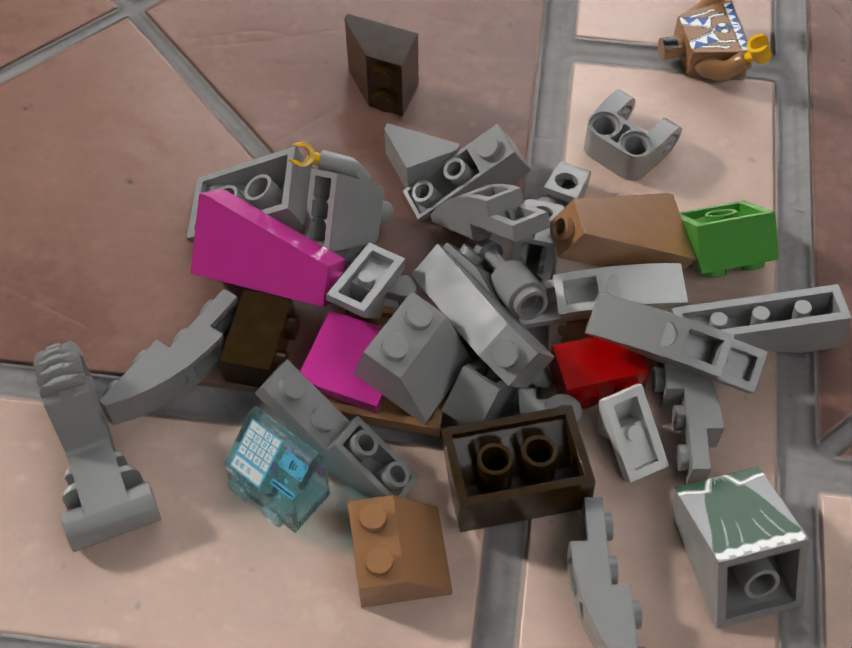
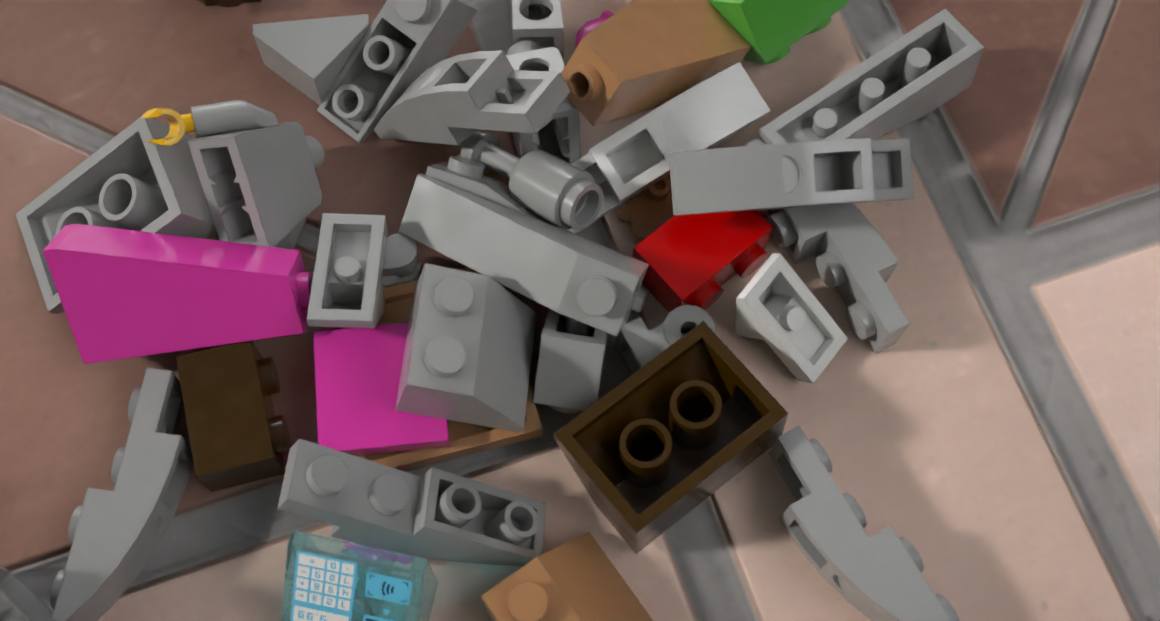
camera: 30 degrees left, 10 degrees up
(742, 546) = (986, 401): light grey slope -> none

